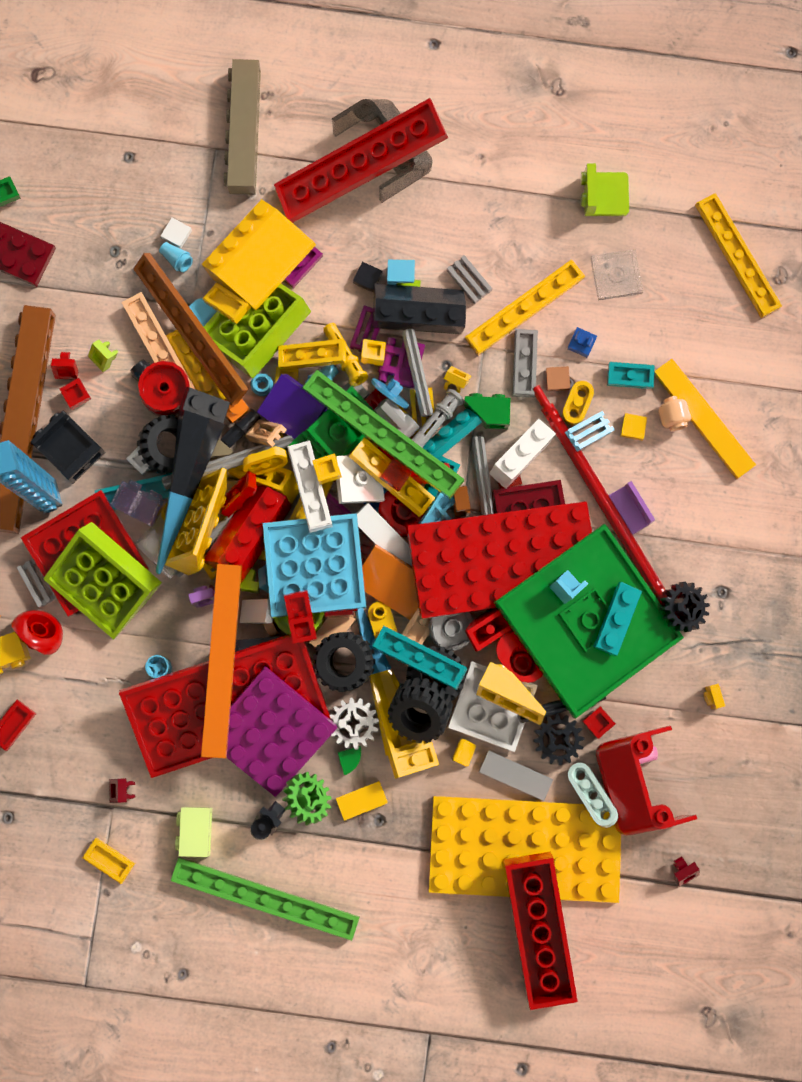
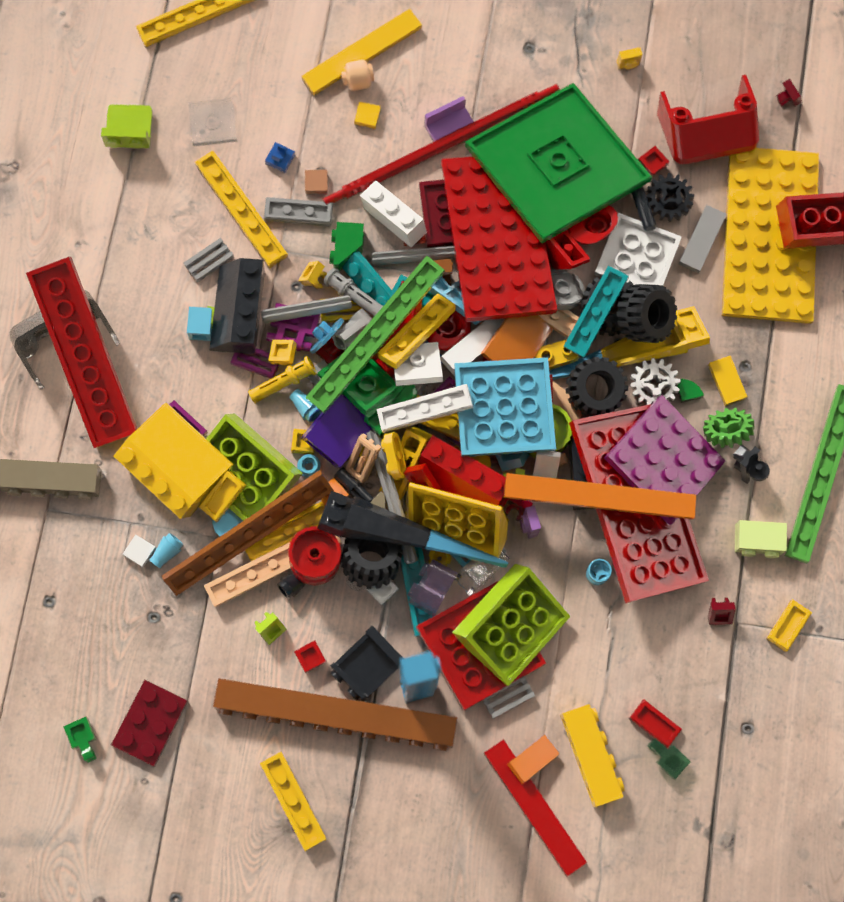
camera: 90 degrees left, 5 degrees down
(39, 631) = (561, 692): red hat -> none
(64, 367) = (281, 666): red tile -> none
(300, 616) = (557, 419): red slope -> none
(312, 354) = (282, 410): yellow plate -> none
(327, 469) = (409, 388): yellow plate -> none
(367, 276) = (200, 358): black tile -> none
(395, 474) = (416, 324): clear red tile -> none
(464, 752) = (680, 286): yellow slope -> none
(506, 690) = (627, 235): yellow slope -> none
(567, 587) = (530, 173): medium azure panel -> none
(577, 403) = (343, 163): yellow plate -> none
(585, 788) = (711, 170): light aqua plate -> none
(603, 423) = (364, 142): tile -> none
(617, 619) = (558, 134): teal plate -> none
(630, 375) = (316, 114): teal plate -> none
(687, 595) = (545, 78): black gear -> none

